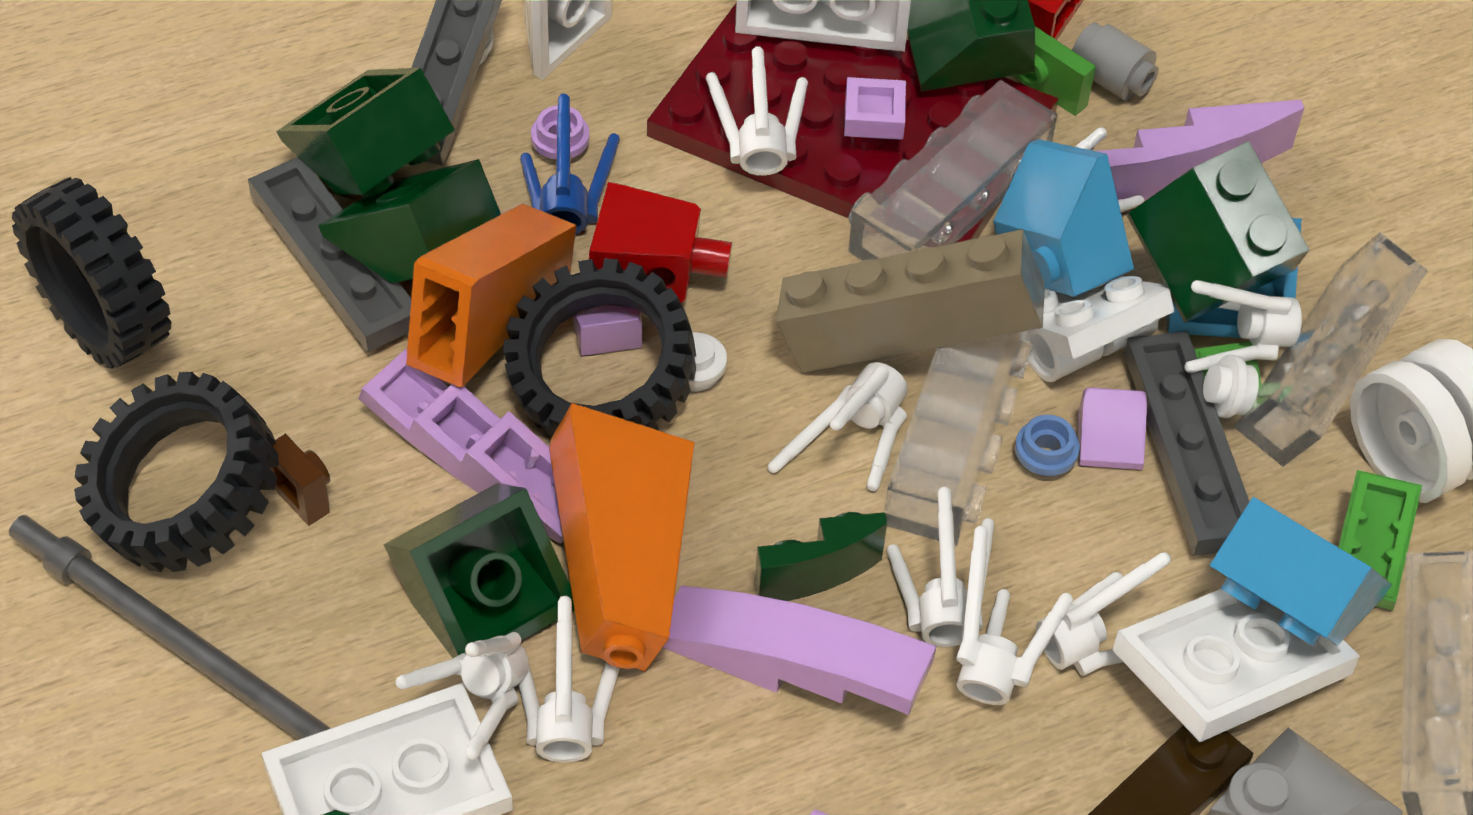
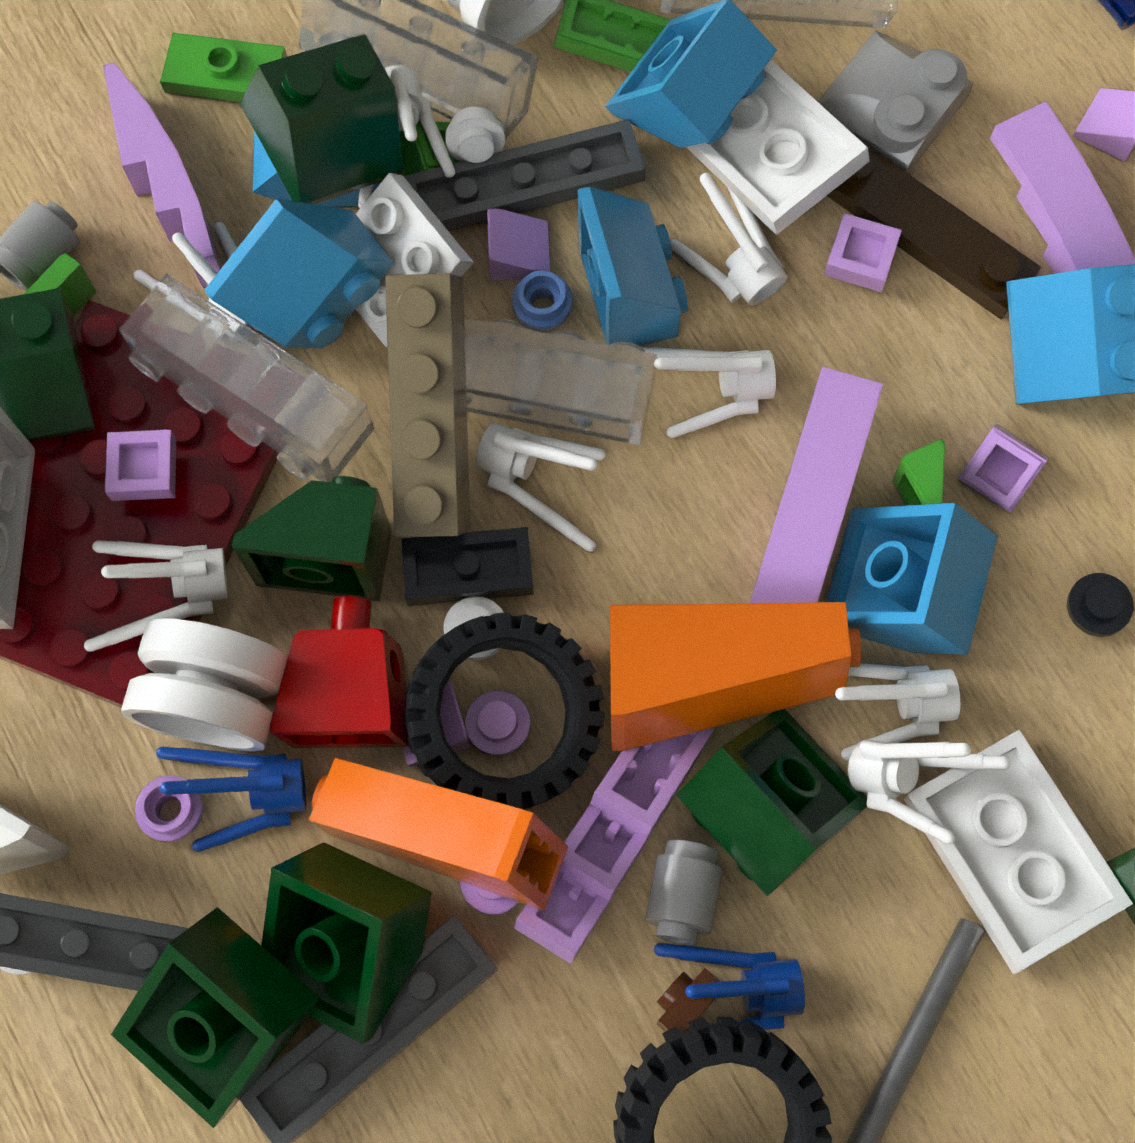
camera: 90 degrees left, 20 degrees up
(298, 549) = (770, 988): none -> blue plant
(403, 487) = (684, 891): none -> light grey brick
(598, 369) = (497, 723): none -> lavender plate
(655, 133) = (205, 684): none -> white wheel
(692, 730) = (914, 576): none -> dark azure slope
(756, 359) = (467, 566): none -> black plate
(783, 224) = (320, 541): none -> dark green slope
(804, 756) = (921, 475): none -> bright green slope
(843, 551) = (702, 475): dark green slope -> none
(991, 660) = (806, 333): white plant -> none
(1068, 495) = (628, 268): none -> dark azure slope
(1094, 743) = (862, 252): none -> lavender plate
(1324, 202) = (214, 66): none -> bright green plate

